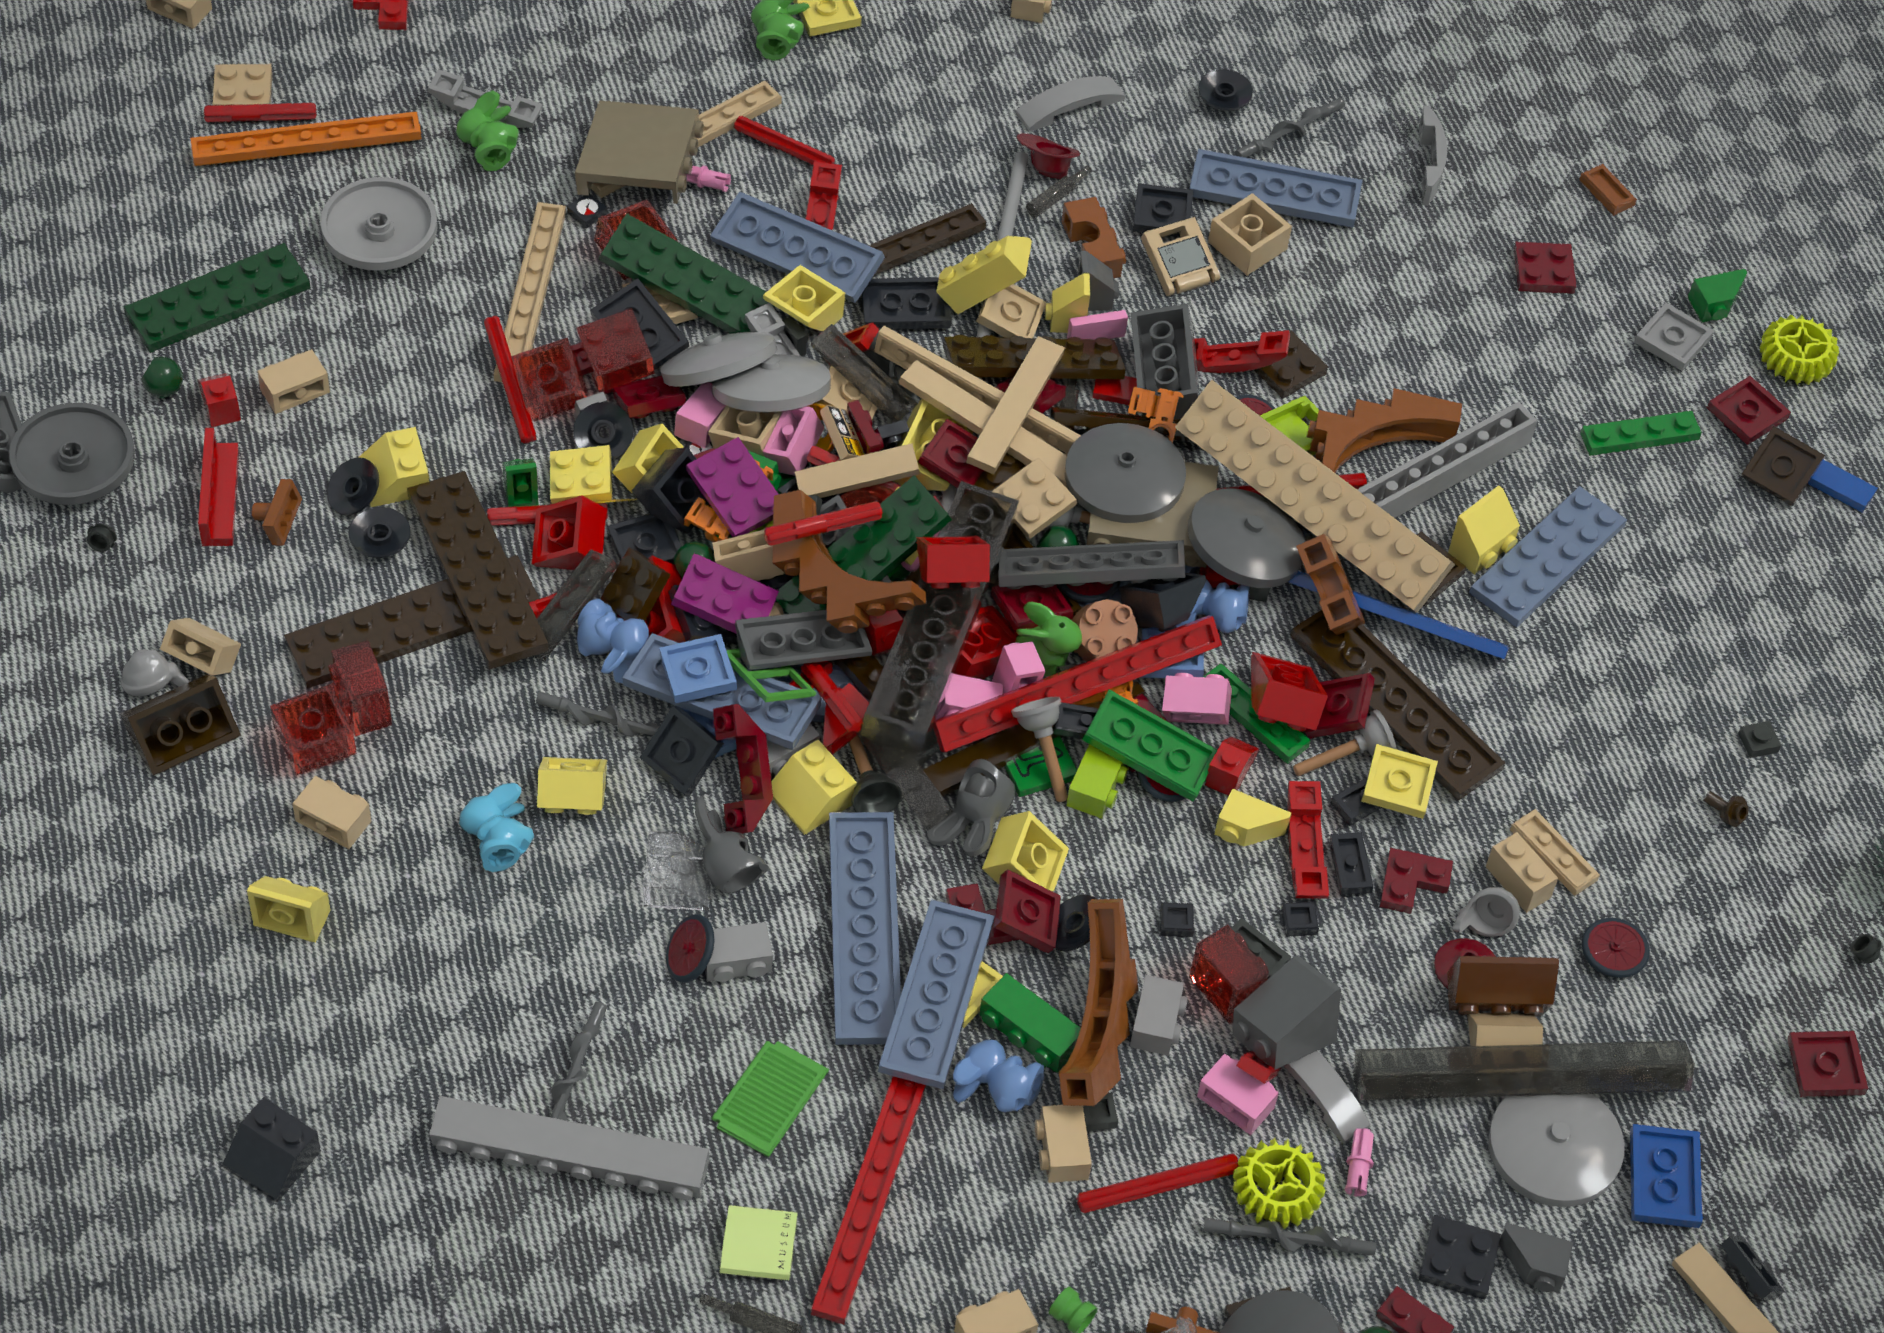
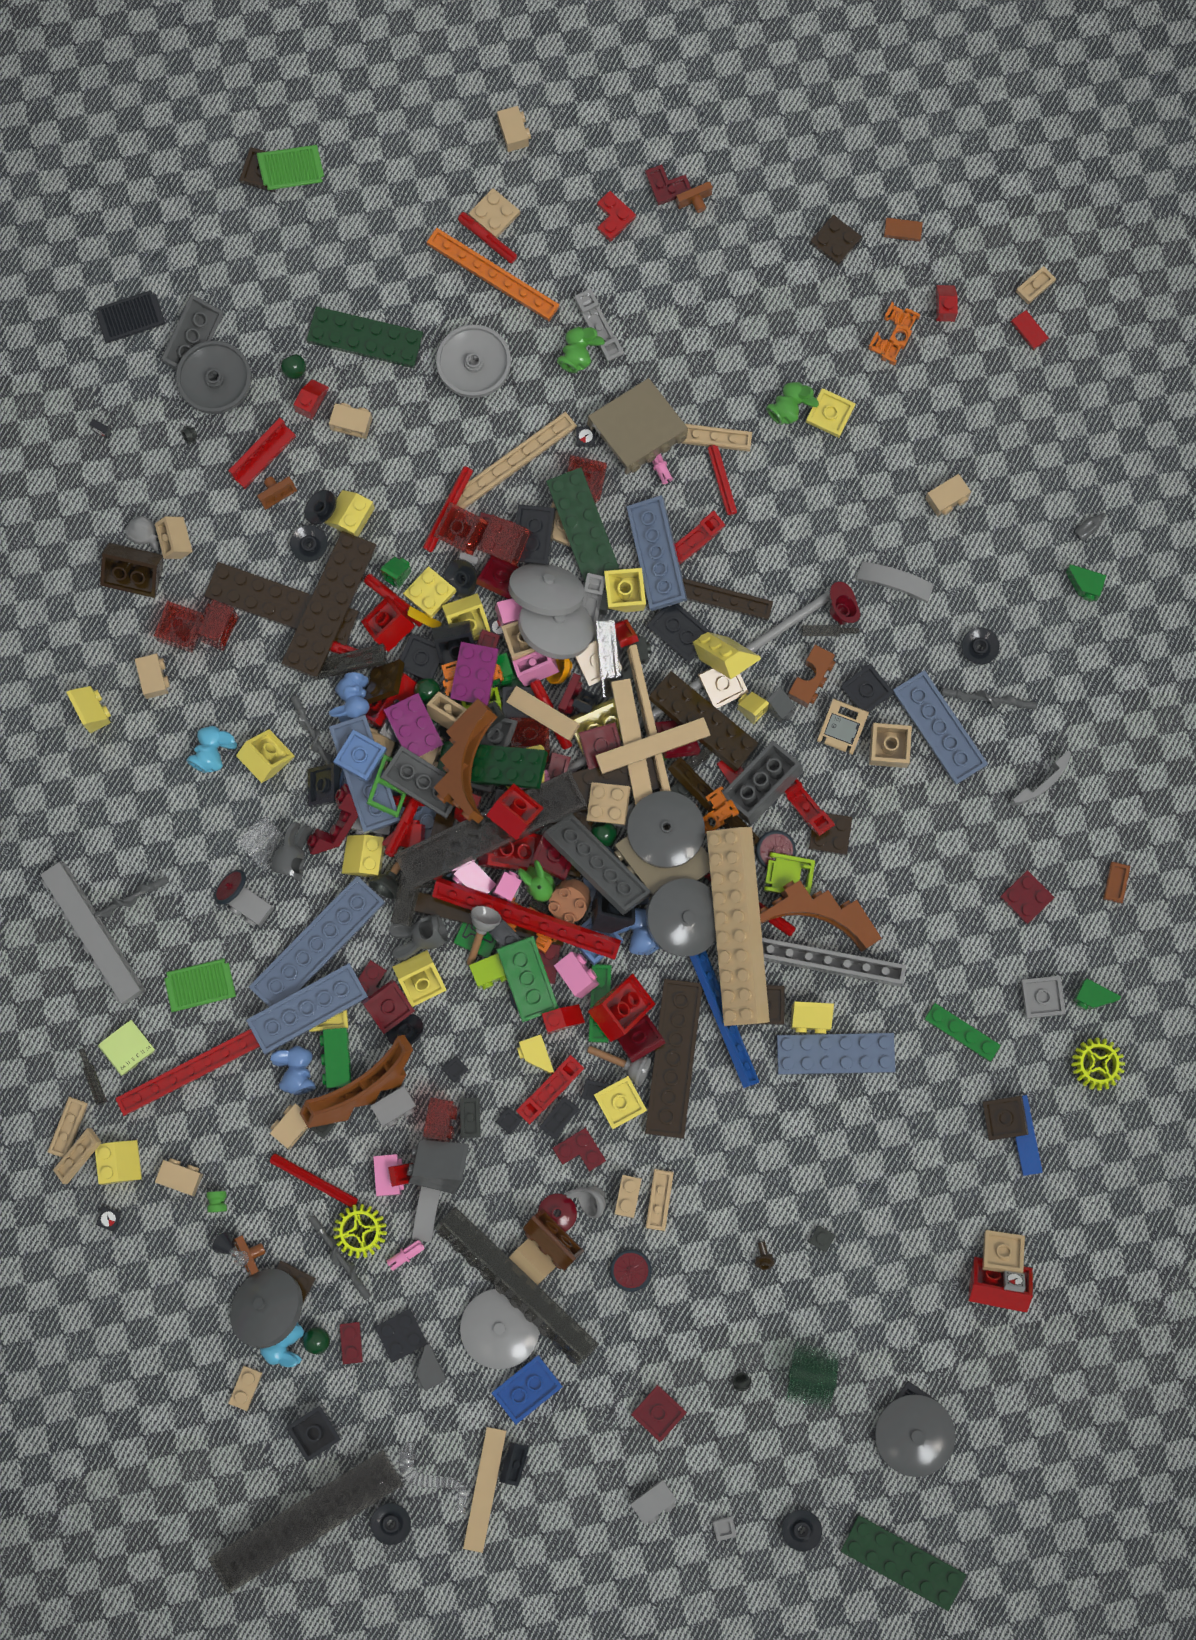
camera: 50 degrees right, 25 degrees up
(822, 523) = (477, 737): red axle -> none
(841, 432) = (557, 686): tile -> none
(1104, 325) = (757, 729): bright pink tile -> none
(1331, 583) = (689, 993): dark orange arch -> none
(1748, 410) = (1030, 1071): dark red plate -> none

